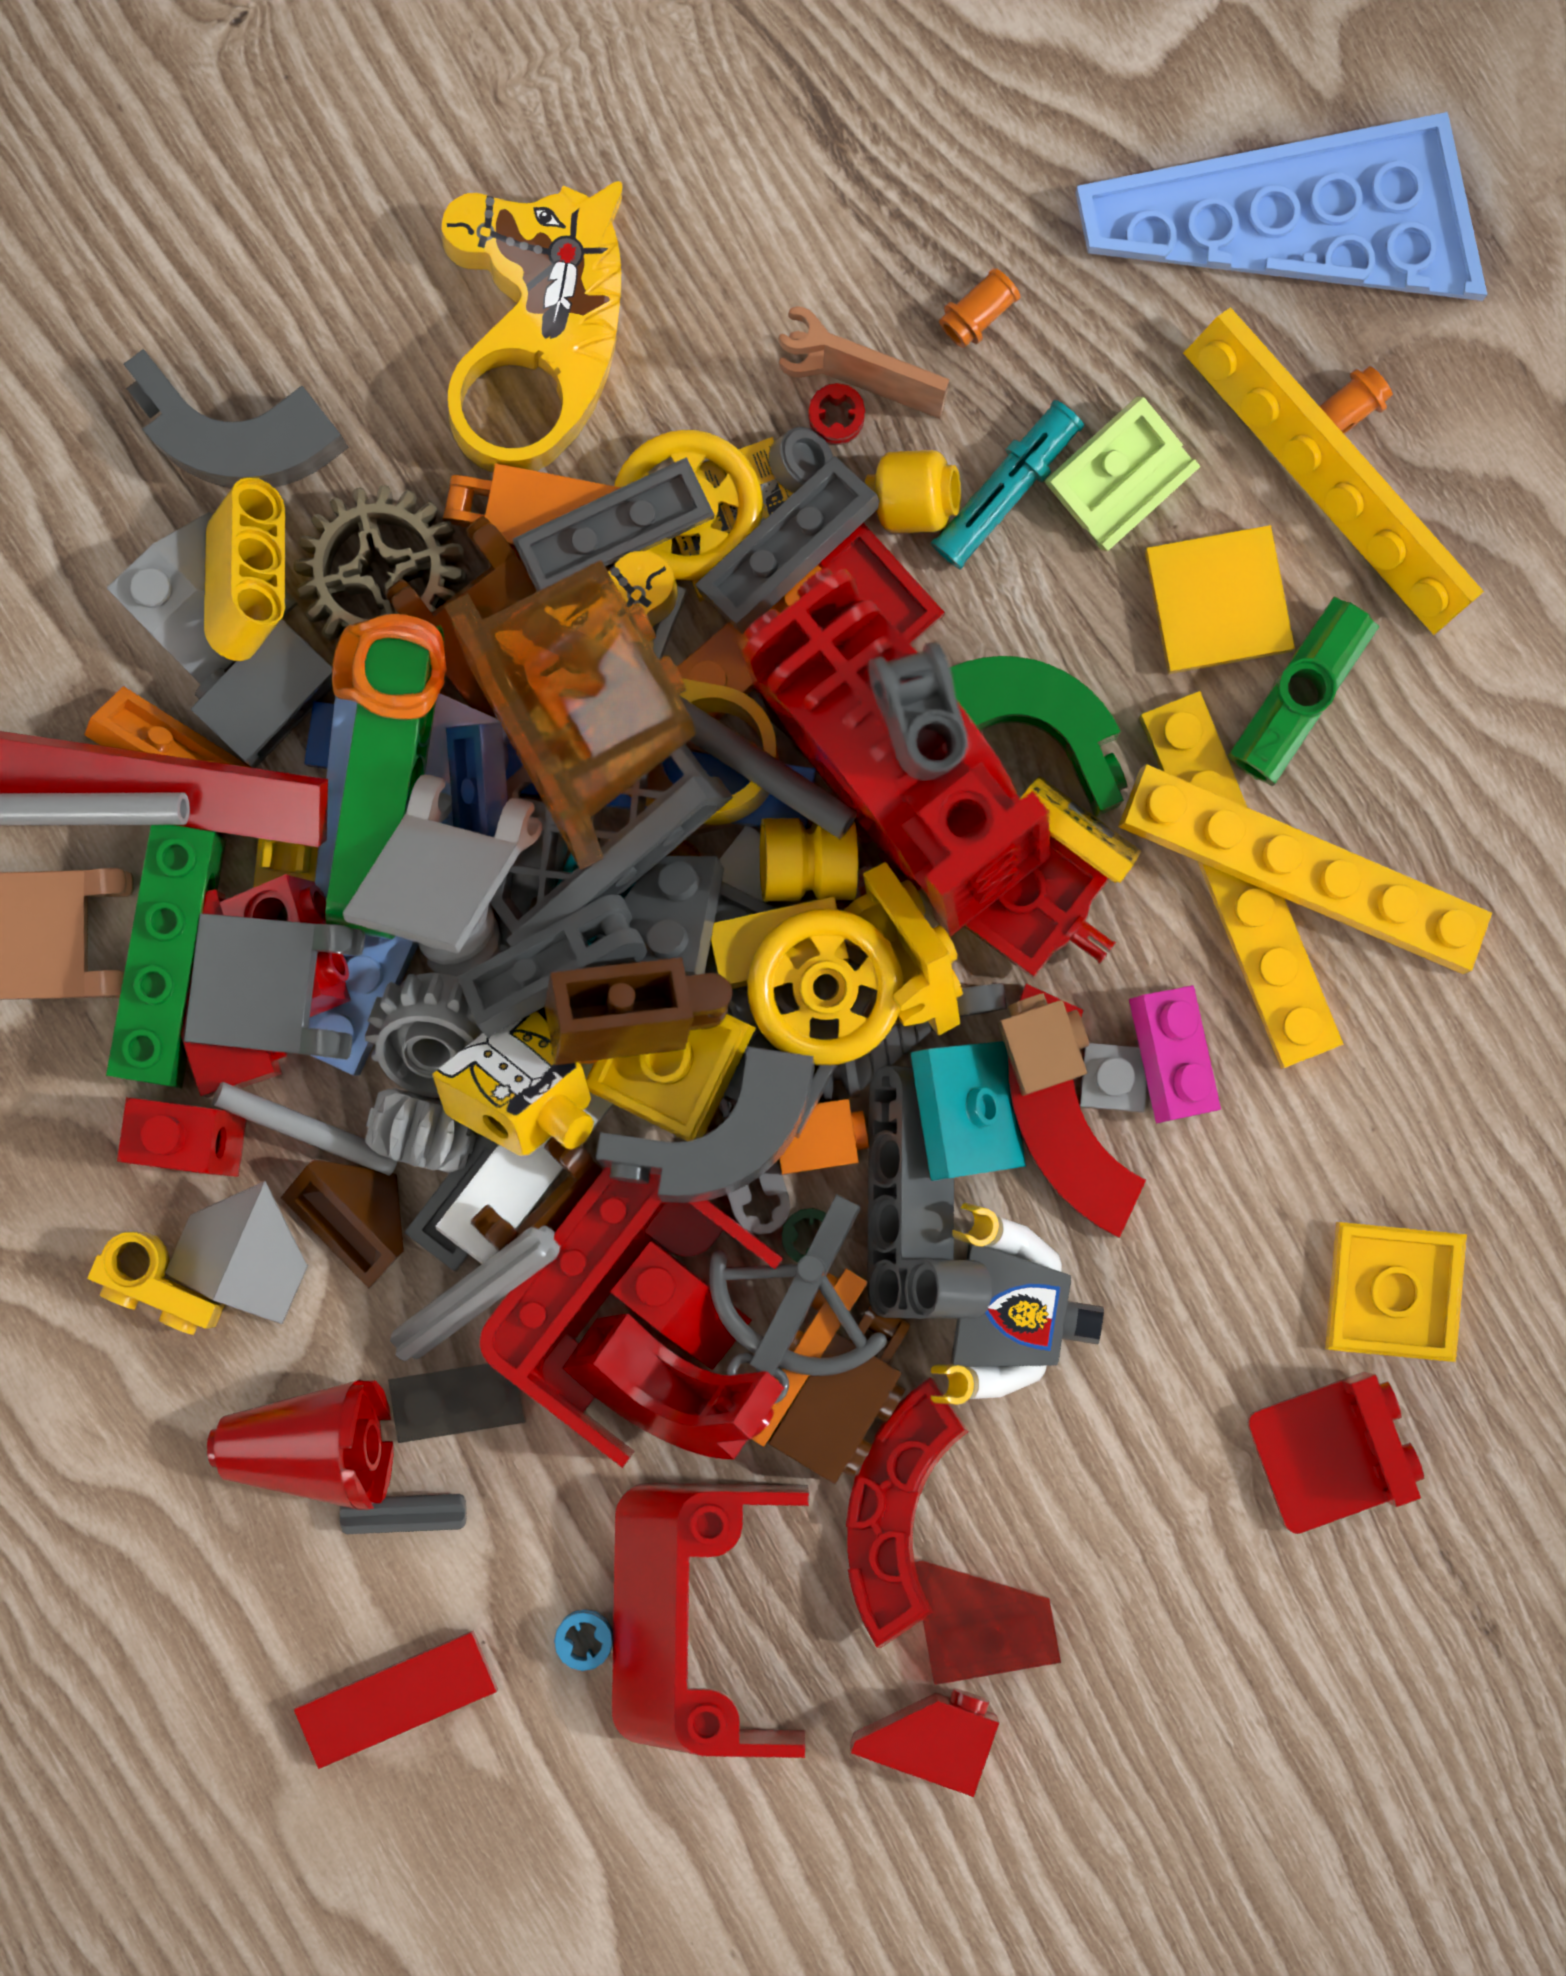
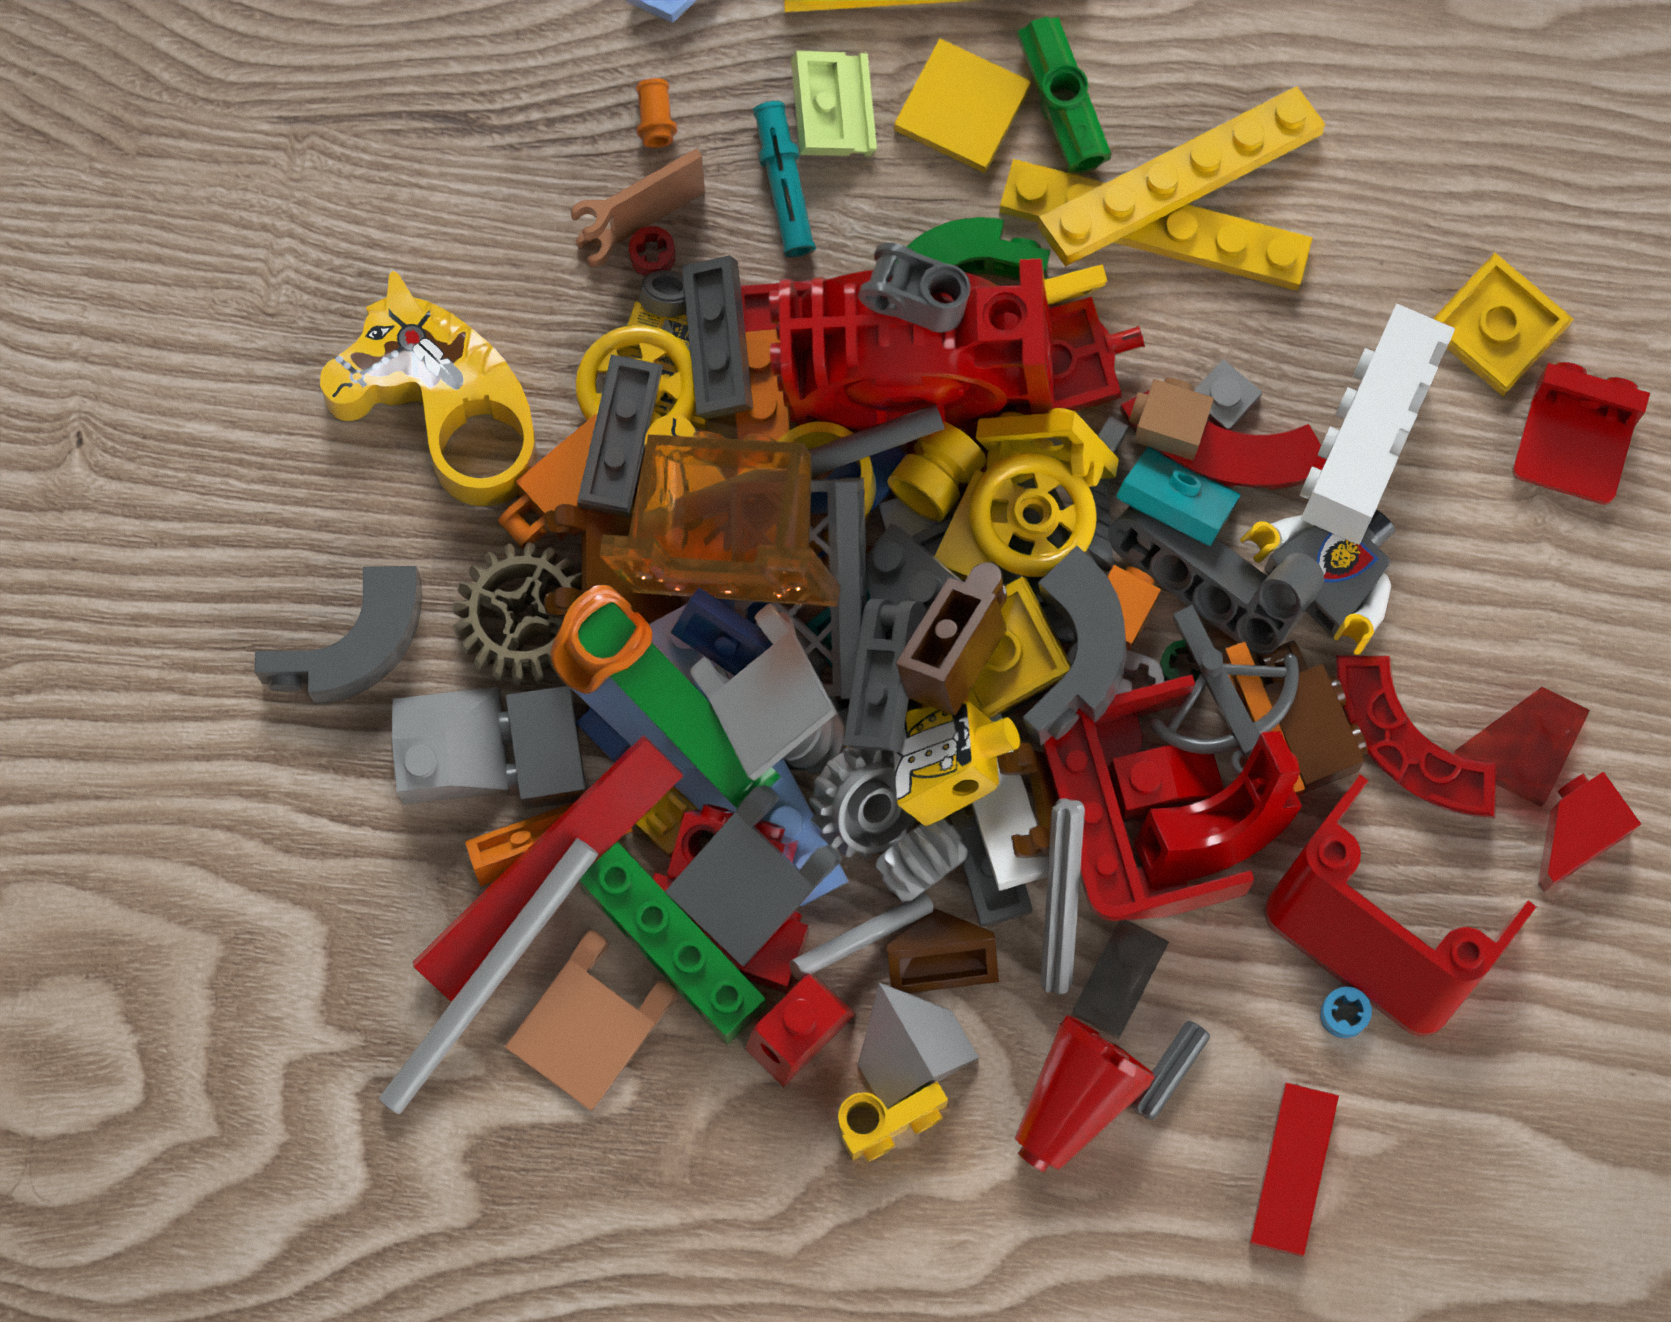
camera: 55 degrees left, 10 degrees down
(244, 569) = (457, 692): yellow beam -> none
(915, 491) = (745, 234): yellow head -> none
(1174, 1054) = (1239, 345): dark pink plate -> none
(1179, 1251) = (1374, 424): none -> white wedge

